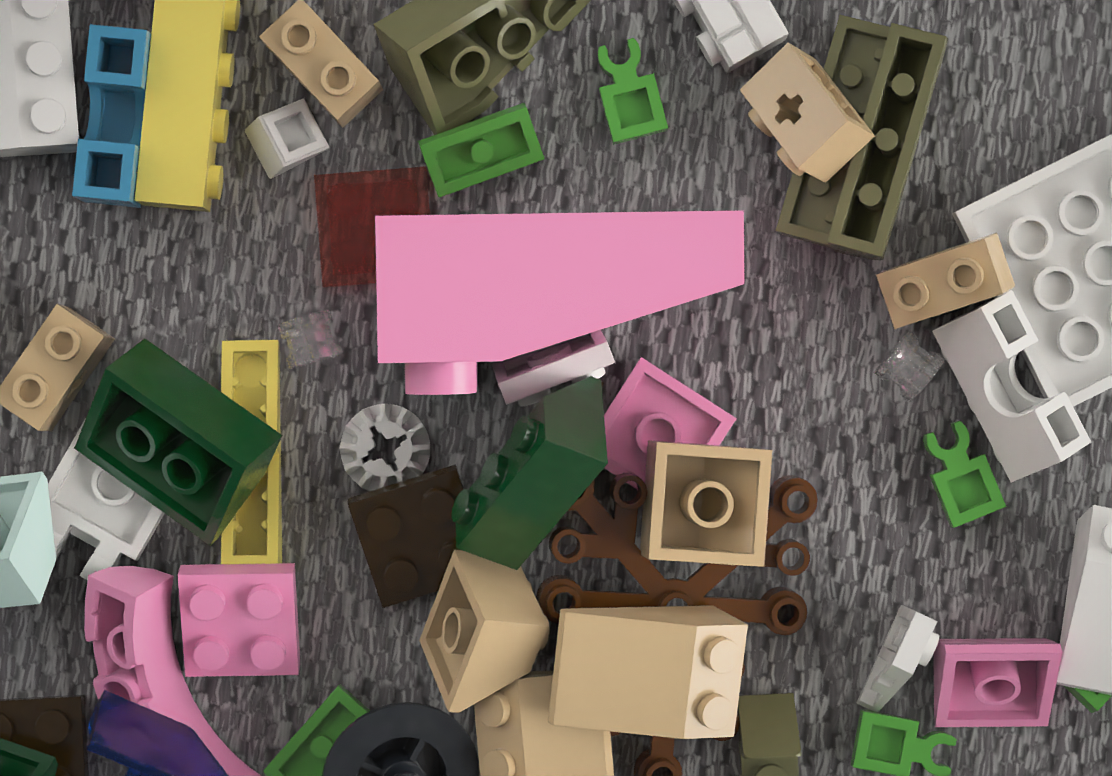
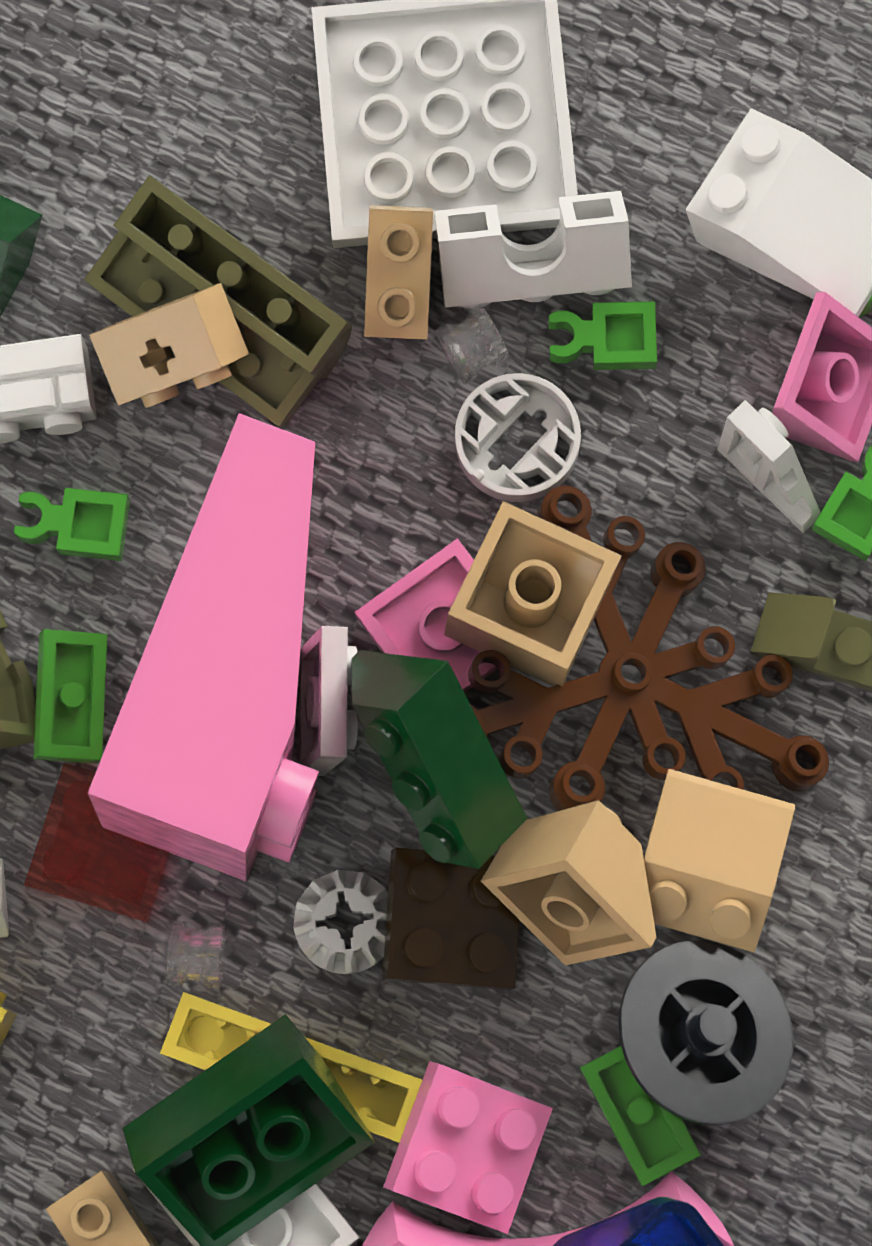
camera: 65 degrees left, 10 degrees down
(648, 671) = (686, 717): tan slope -> none
(854, 408) = (495, 417): none -> white piece

